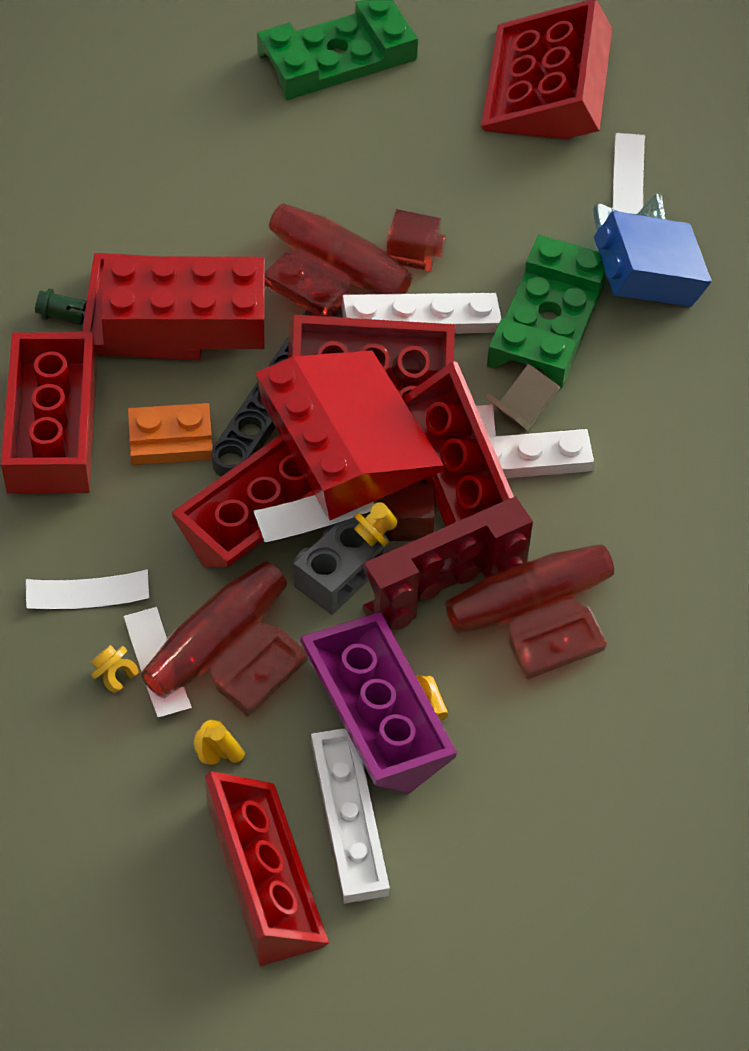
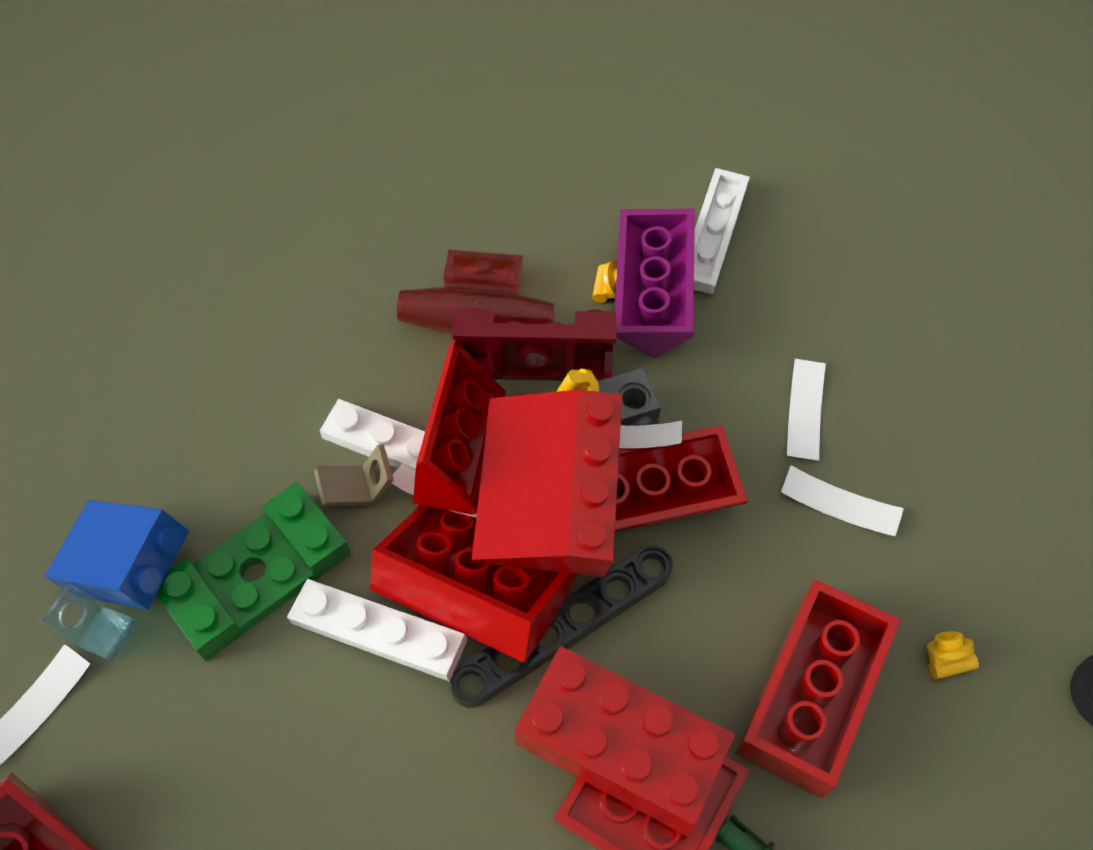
camera: 150 degrees left, 5 degrees up
(108, 662) = (850, 416): yellow plate -> none
(170, 434) = (697, 625): orange plate -> none
(216, 742) = (788, 316): yellow plate -> none
(228, 639) = (743, 382): clear red plate -> none
(264, 867) = (796, 222): red slope -> none
(328, 262) = (429, 738): clear red plate -> none
(415, 240) = (319, 725): clear red brick -> none

